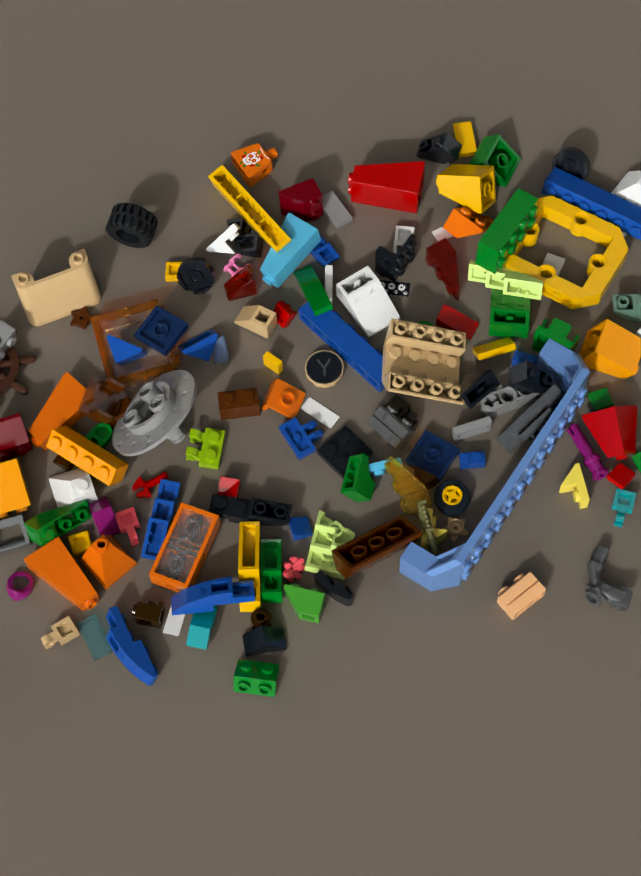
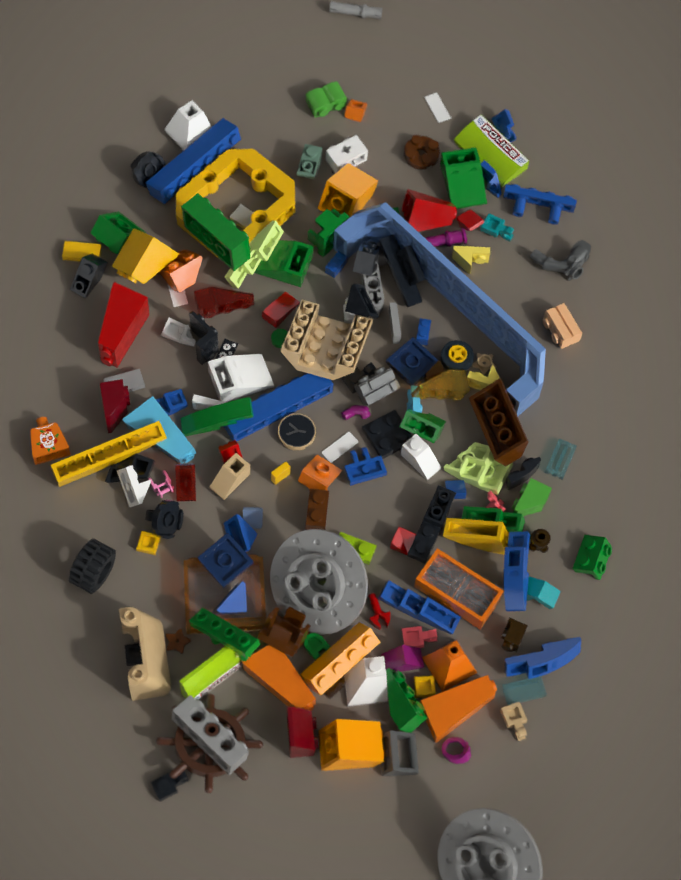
camera: 85 degrees left, 0 degrees up
(55, 352) = (210, 673): none -> lime slope
(81, 344) = (225, 633): none -> green plate
(173, 623) = (520, 616): white sticker -> none
(264, 640) = (559, 544): black slope -> none
(324, 485) = (420, 456): none -> white slope
(361, 633) = (555, 472): none -> clear light blue tile
(363, 417) = (356, 410): none -> magenta arm
(424, 518) = (487, 377): olive piece -> none
(494, 348) = (317, 284): yellow tile -> none

